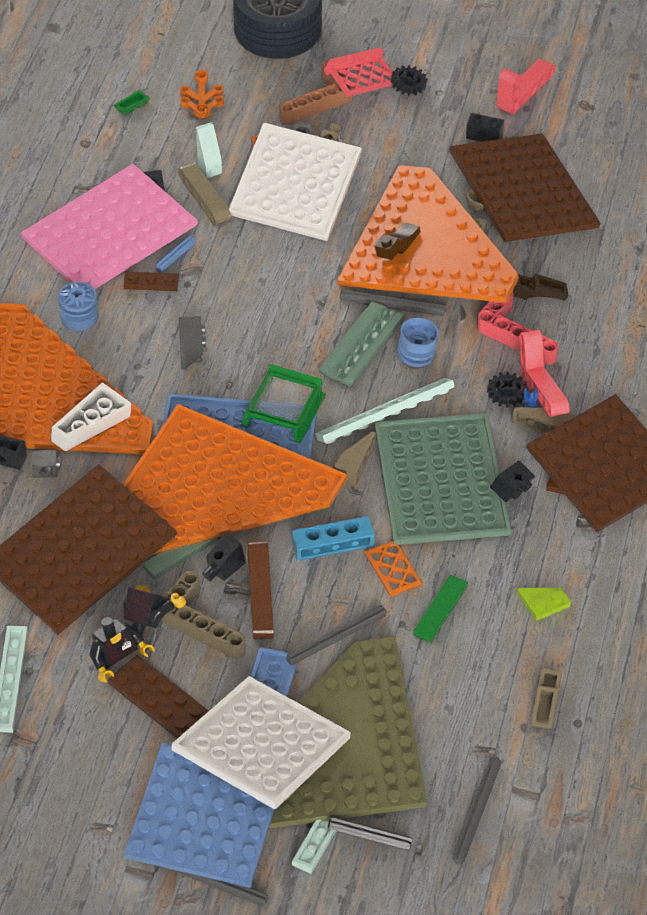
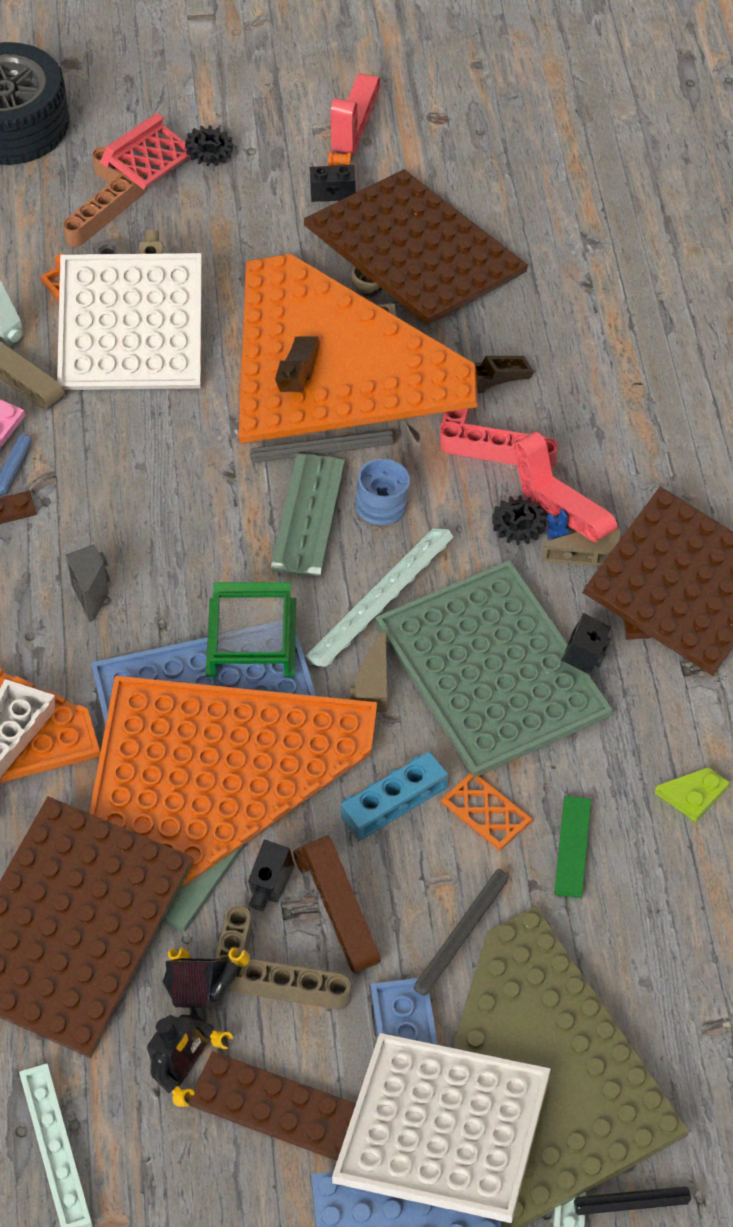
camera: 20 degrees left, 5 degrees up
(499, 114) = (339, 159): none -> orange bush

